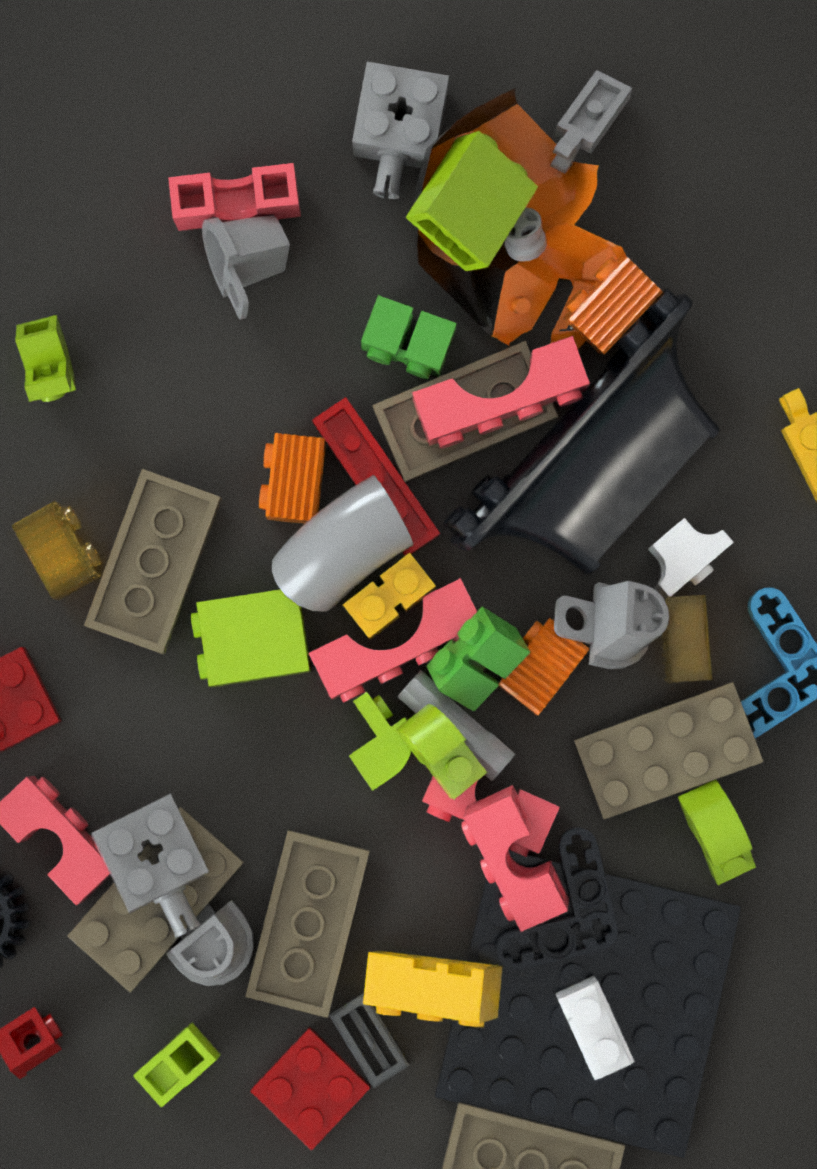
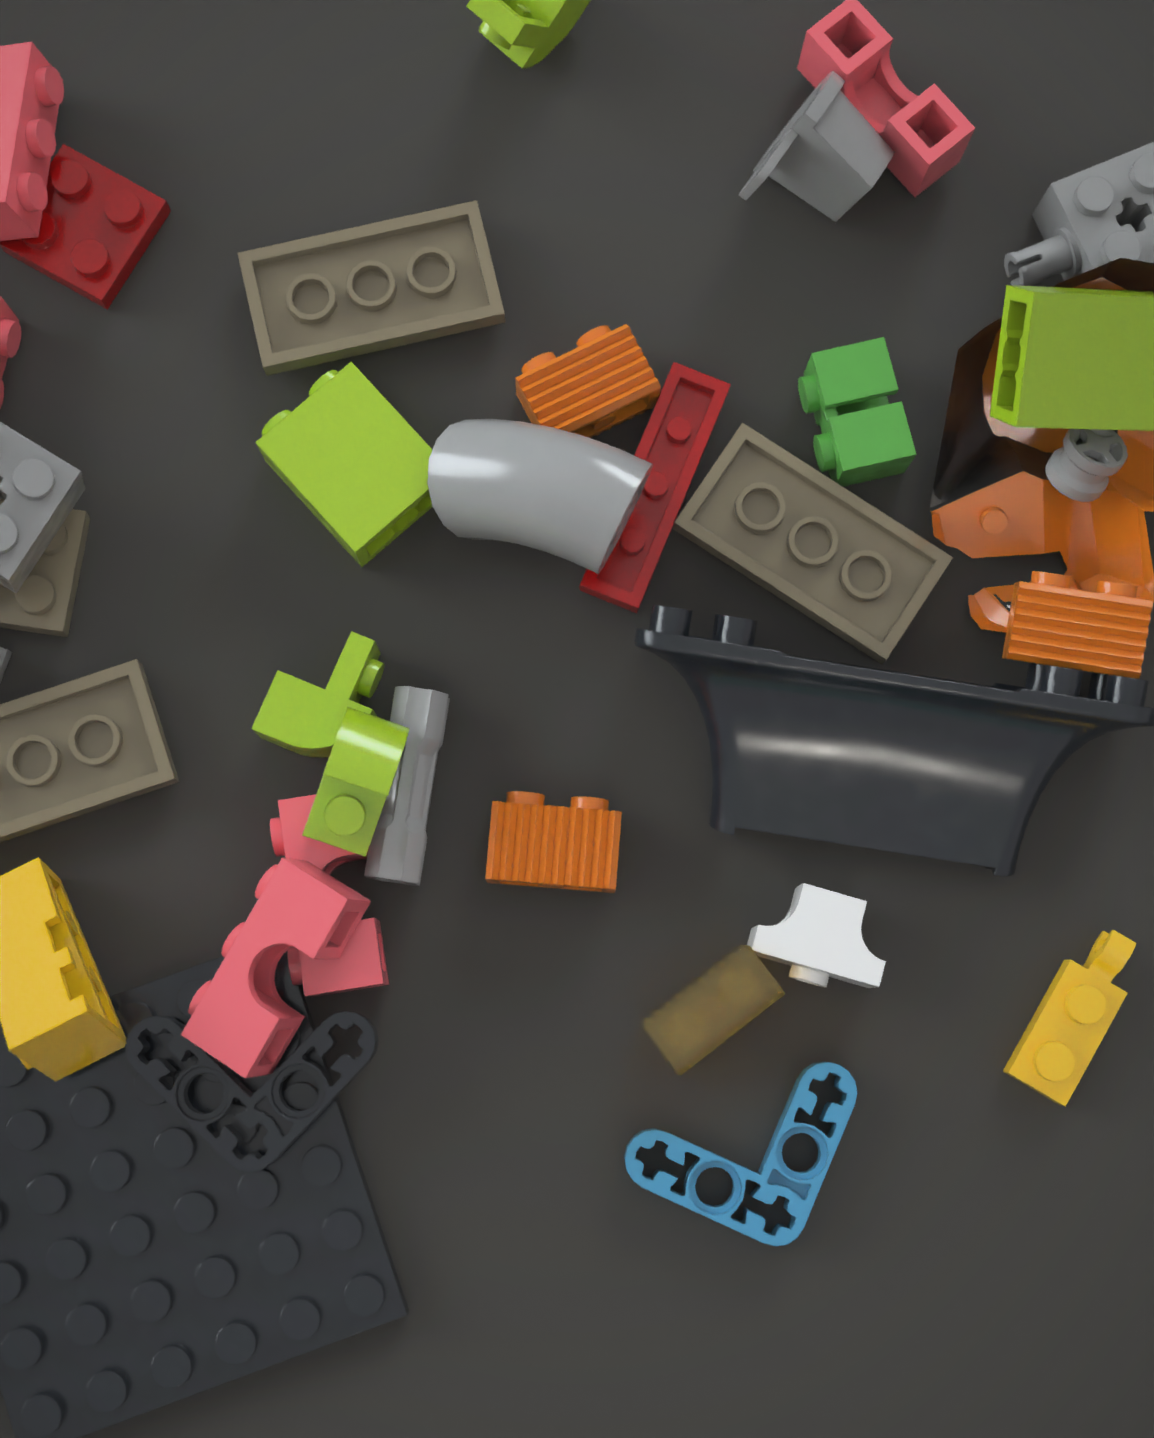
camera: 50 degrees right, 5 degrees down
(57, 549) = (311, 166): clear yellow brick -> none
(347, 665) = (535, 683): coral arch -> none
(402, 584) = (543, 599): yellow piece -> none
(450, 411) = (928, 613): coral arch -> none
(482, 644) = (529, 747): bright green piece -> none
(594, 1027) = (114, 1219): white brick -> none
(616, 623) = (670, 904): light grey container -> none
(668, 750) = (552, 1083): dark tan plate -> none
(718, 831) = (486, 1217): lime brick -> none

